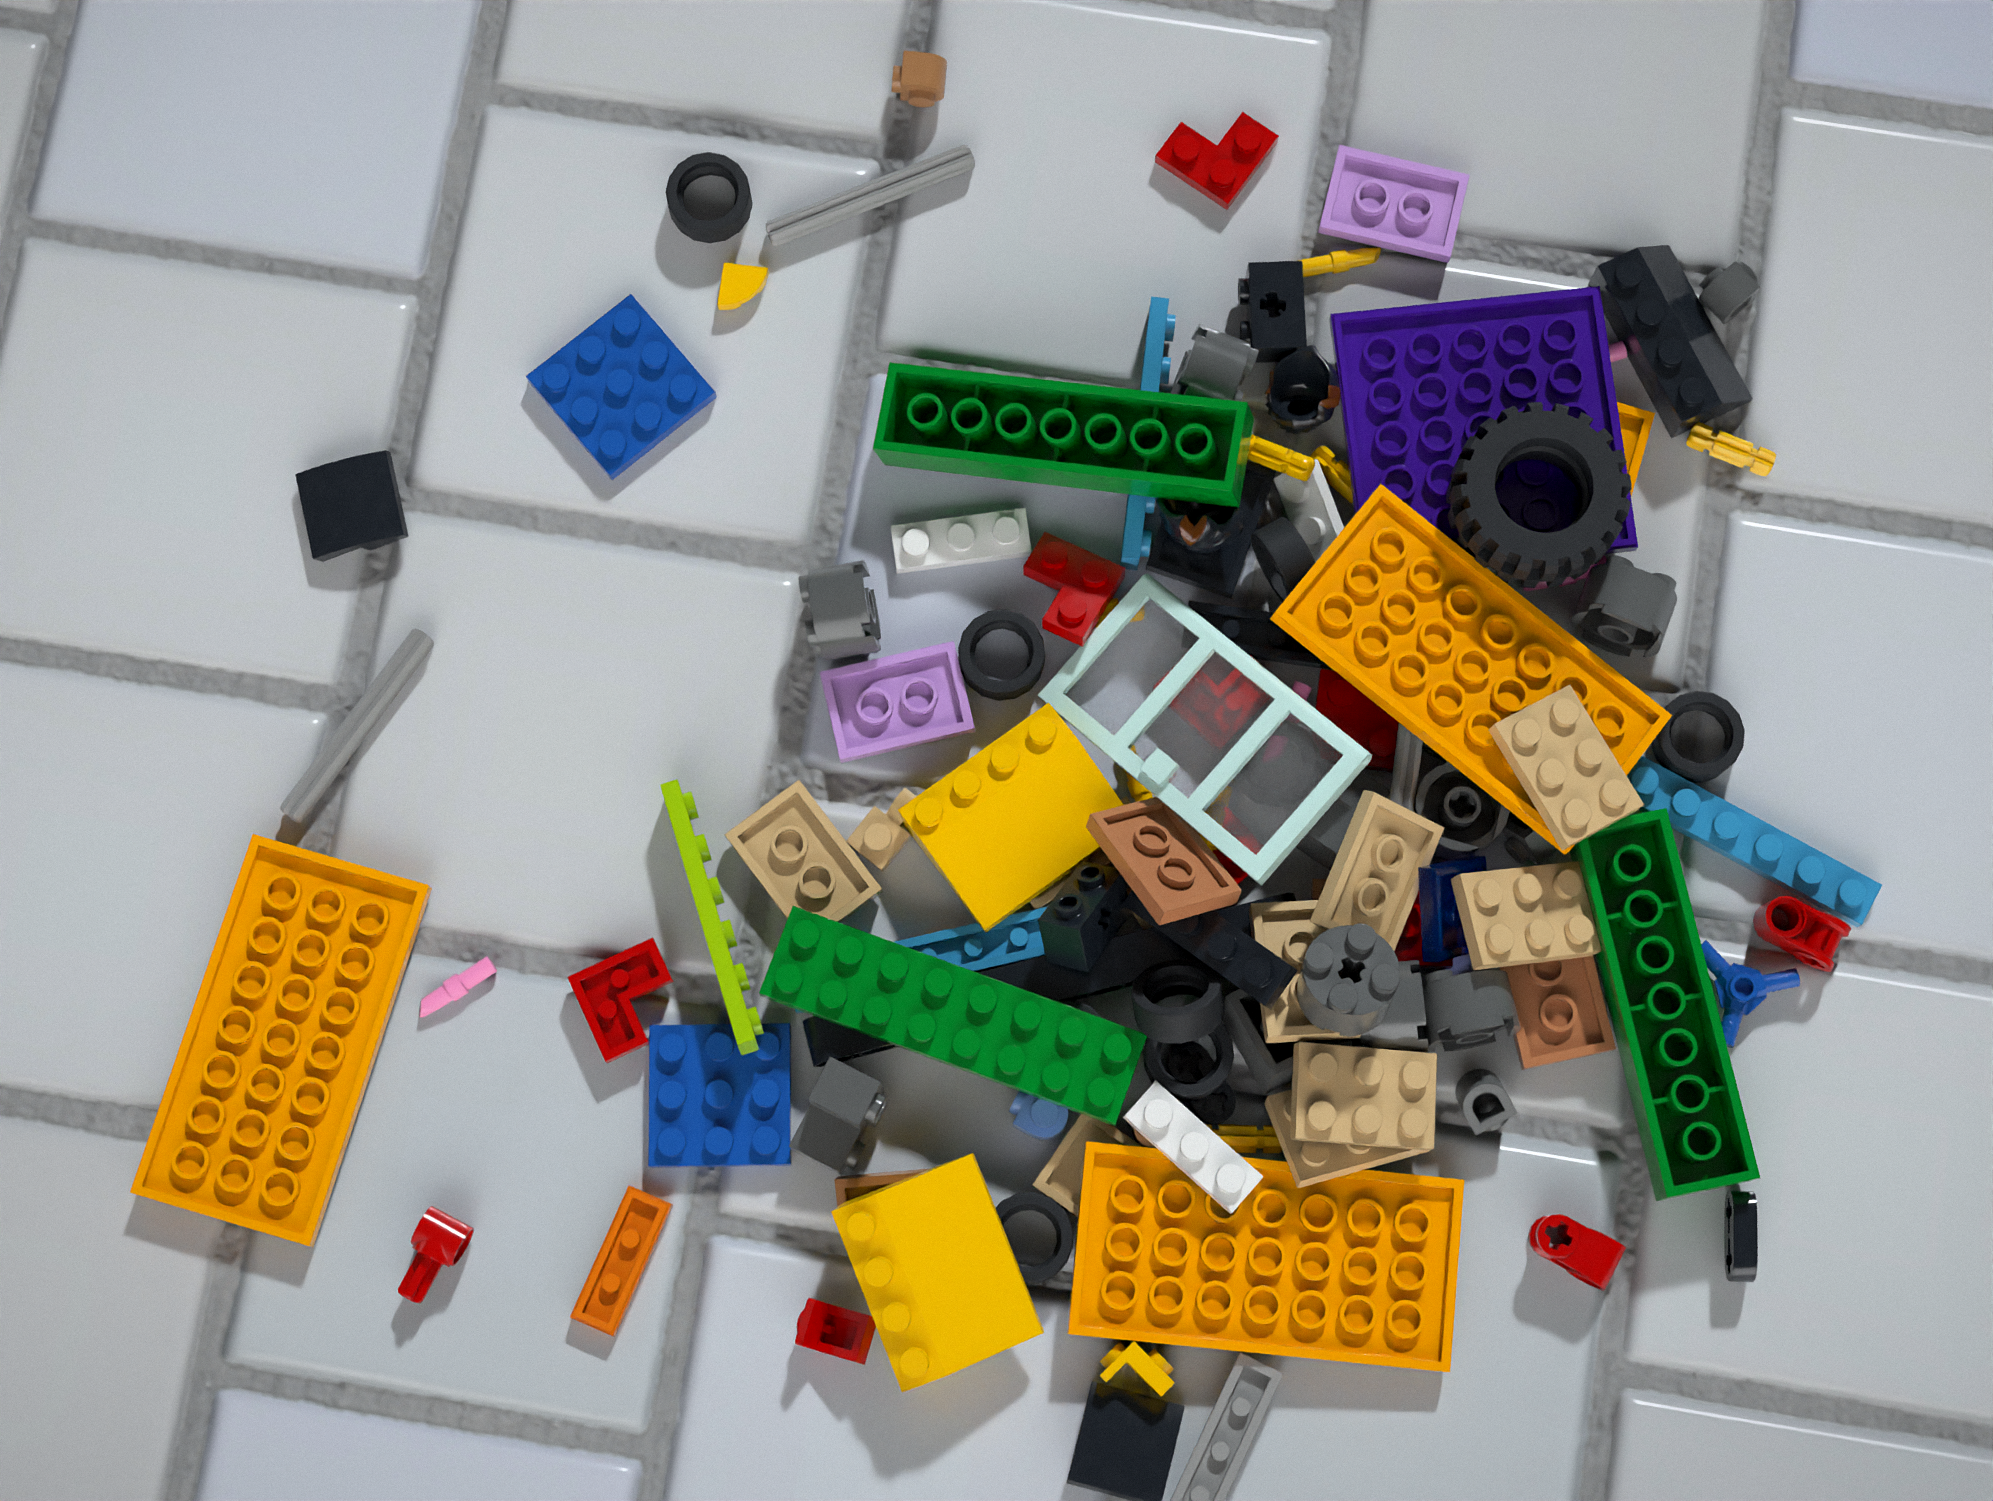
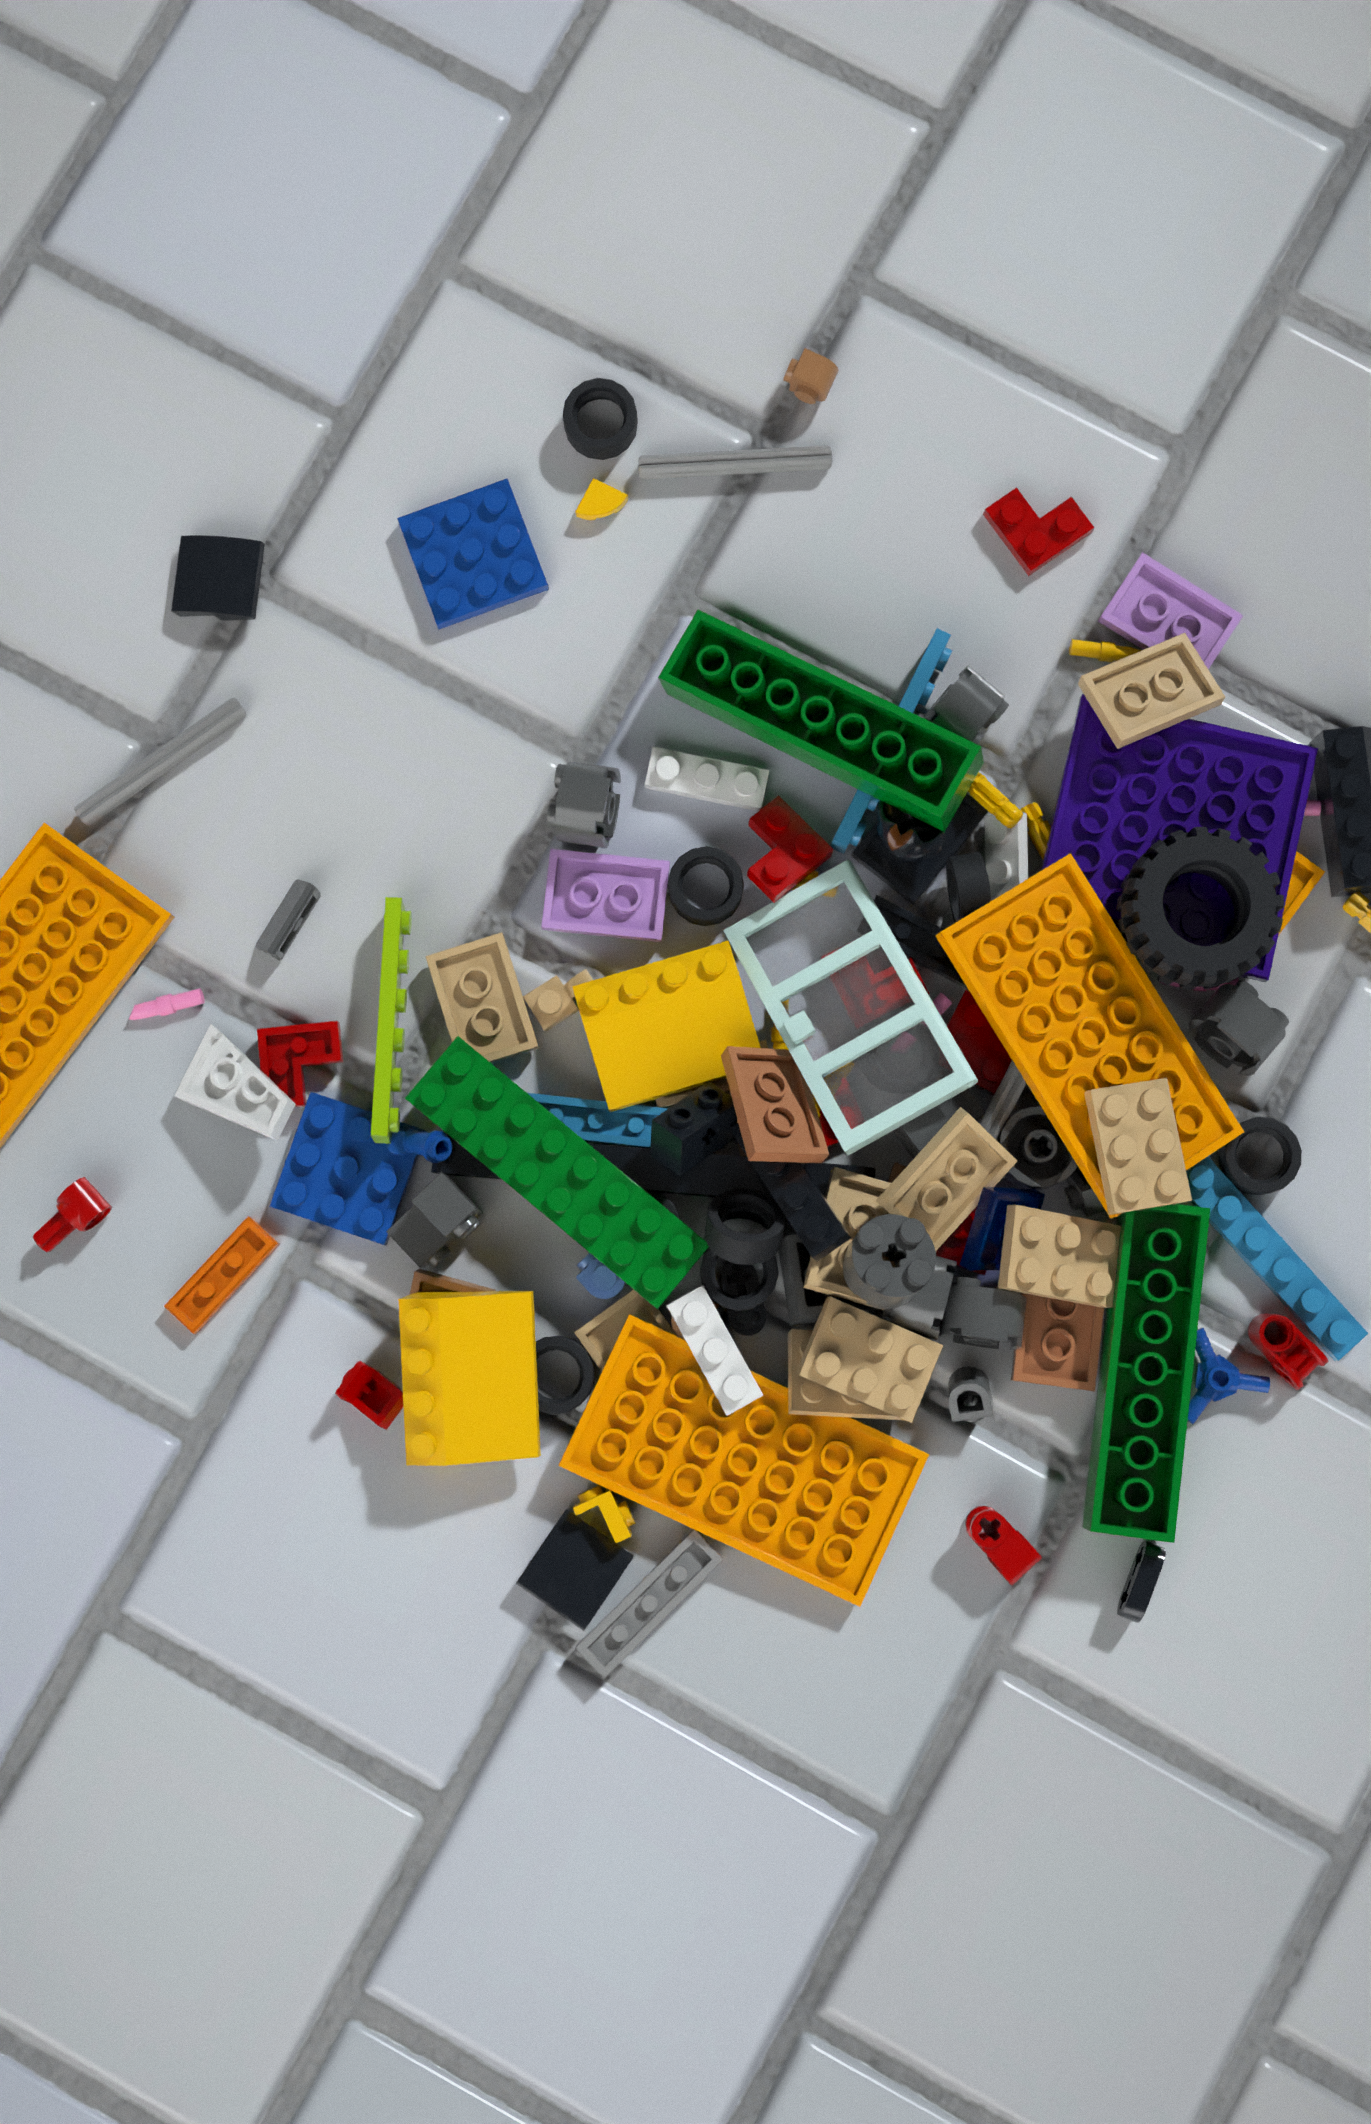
camera: 20 degrees right, 5 degrees up
(558, 847) = (288, 919): none -> dark grey slope
(565, 1050) = (233, 1087): none -> white wing
(808, 1035) = (432, 1145): none -> blue pin
(1247, 1137) = (761, 1354): yellow axle -> none
(1279, 287) = (1049, 657): black brick -> none
(1302, 391) = (1035, 751): black hair -> none
(1402, 285) = (1151, 690): none -> tan plate

